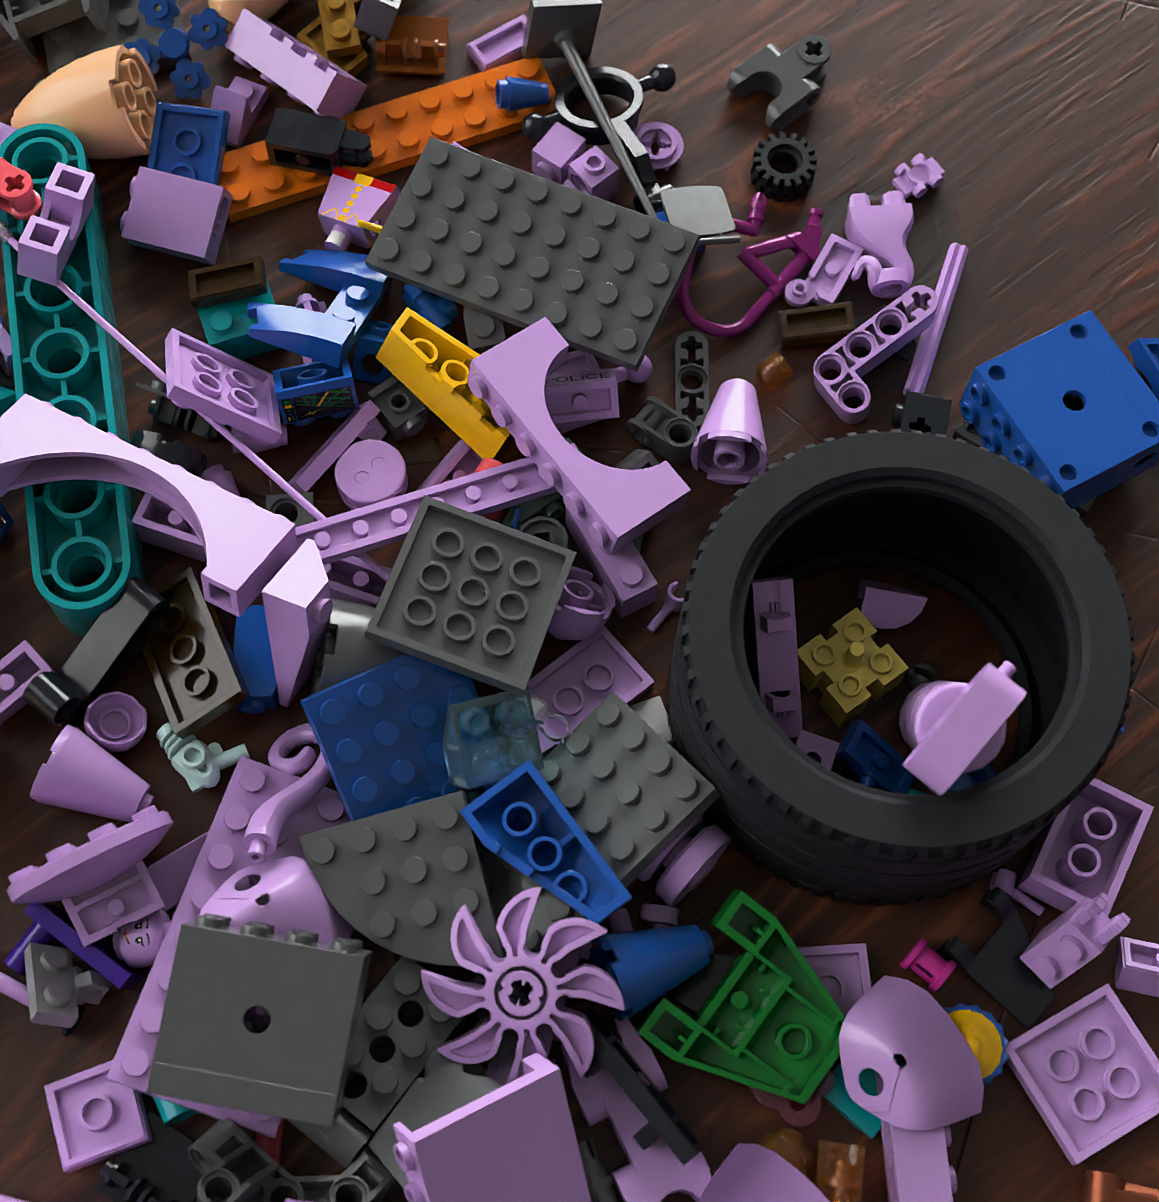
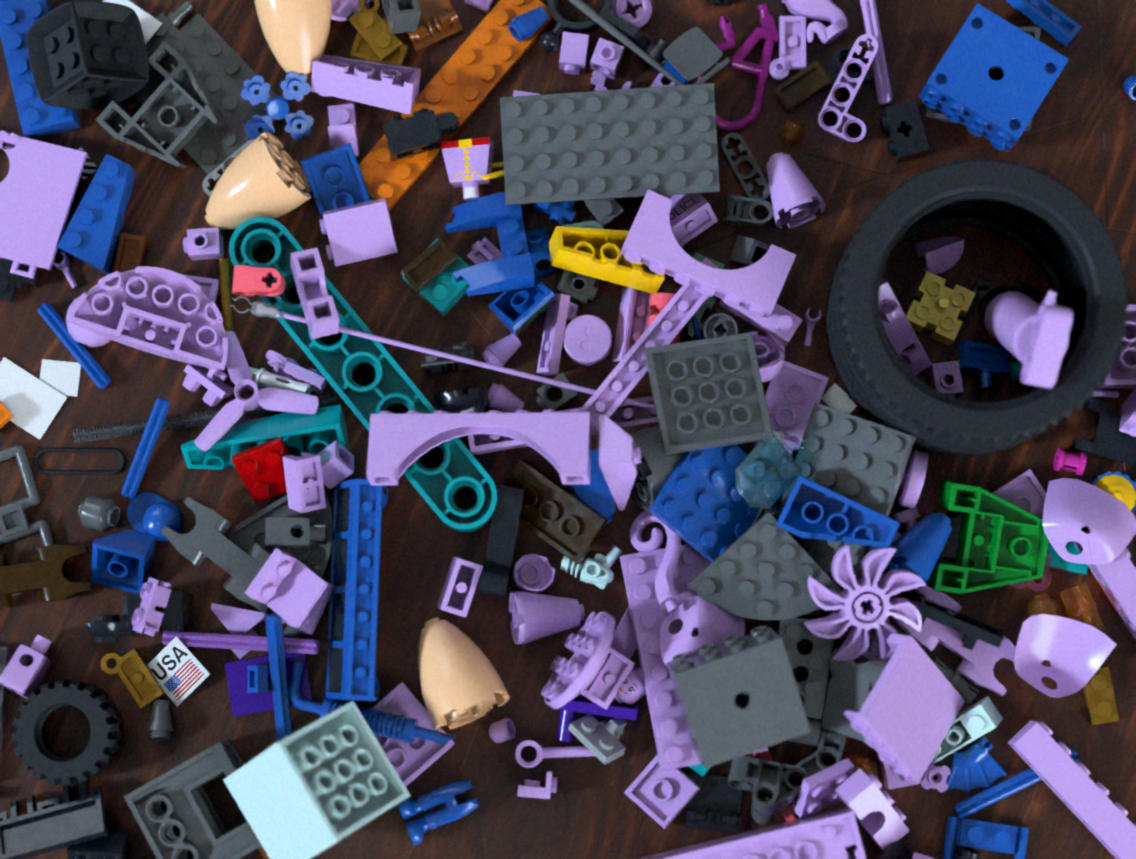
camera: 20 degrees left, 15 degrees up
(221, 387) = (472, 338): lavender plate -> none

